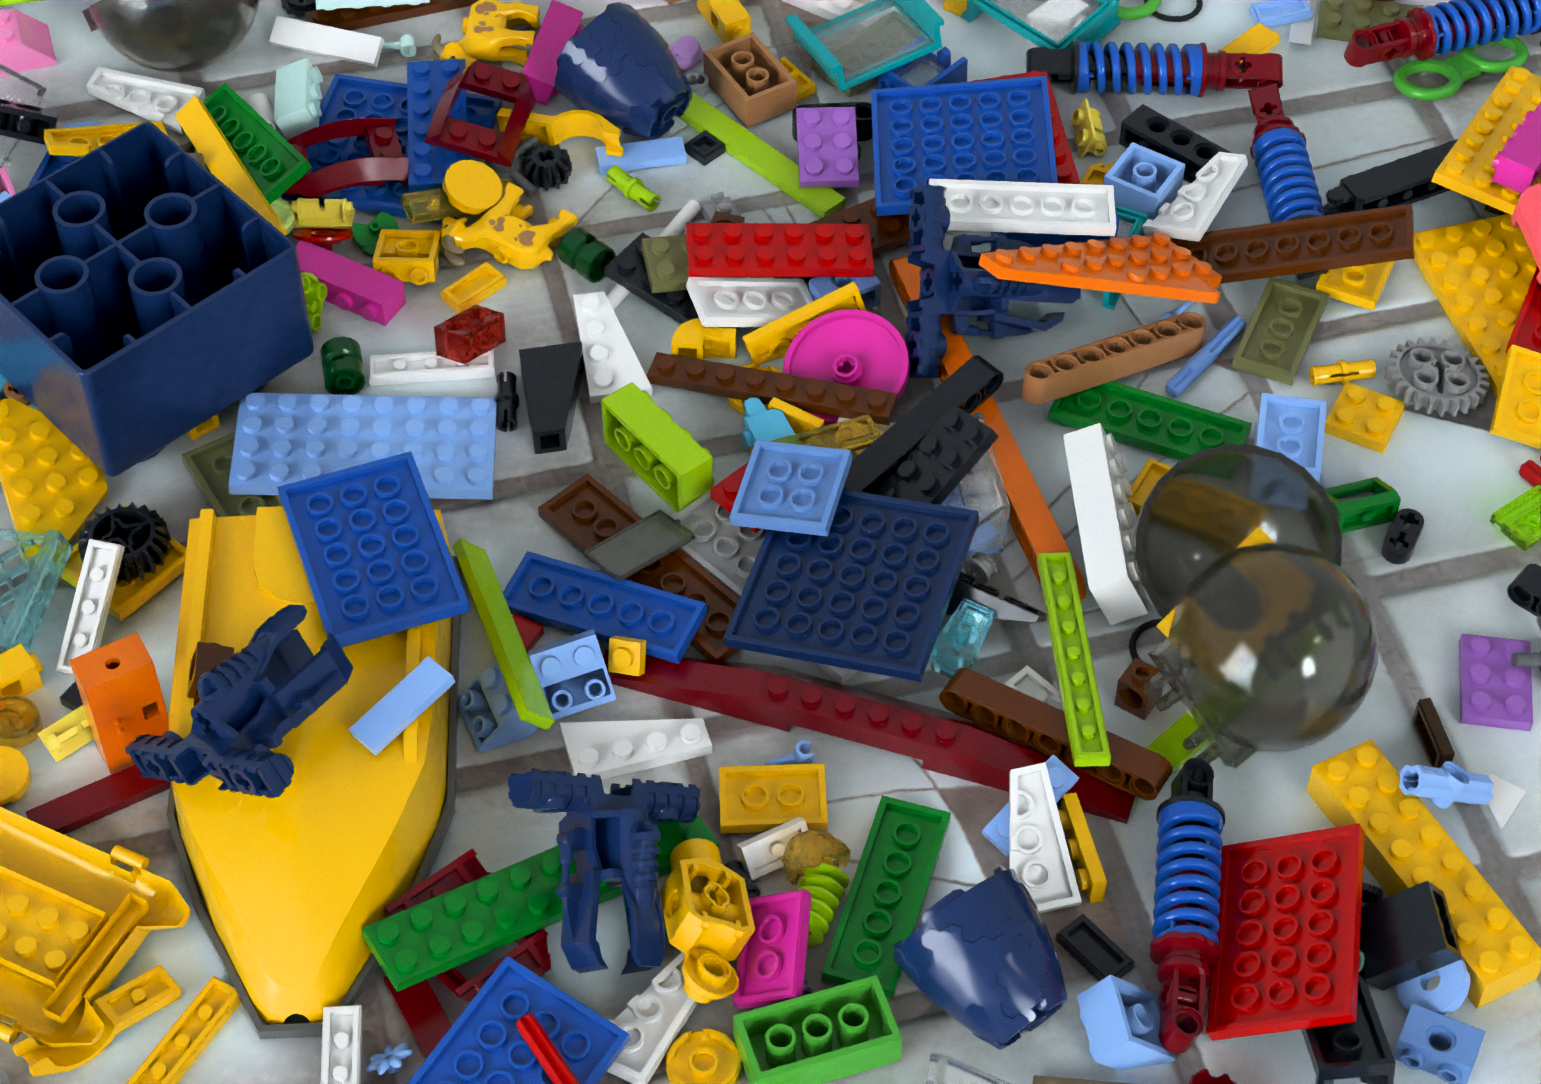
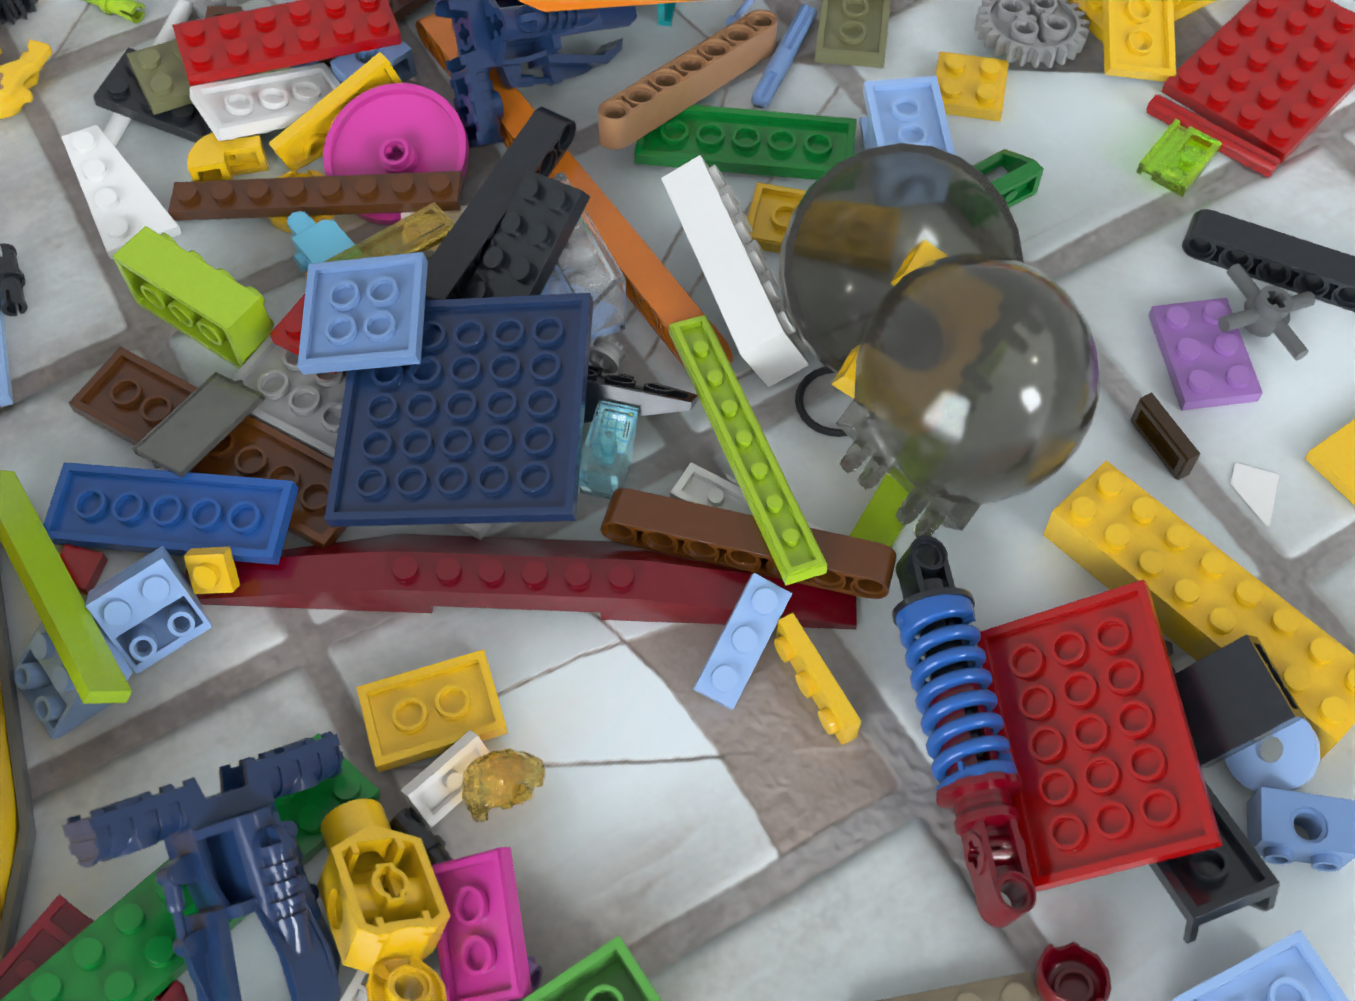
camera: 15 degrees left, 10 degrees up
(551, 392) = (59, 258): black slope -> none
(586, 254) = (68, 86): dark green wheel -> none
(632, 745) = (234, 686): white wing -> none
(797, 418) = (355, 226): yellow tile -> none
(798, 757) = (448, 647): light blue hand -> none
(827, 888) = (515, 828): lime piece -> none
(886, 893) = (601, 810): green plate -> none
(987, 960) = (754, 883): dark blue piece -> none
(1038, 841) = (769, 702): white wing -> none
(1094, 949) = (867, 809): black tile -> none
(1122, 1024) = (930, 907): light blue slope -> none
(1130, 689) = (822, 459): reddish brown brick -> none
(1342, 372) = (931, 42): yellow pin -> none
(1398, 534) = (1059, 210): black beam -> none
(1446, 784) = (1206, 495): light blue piece -> none

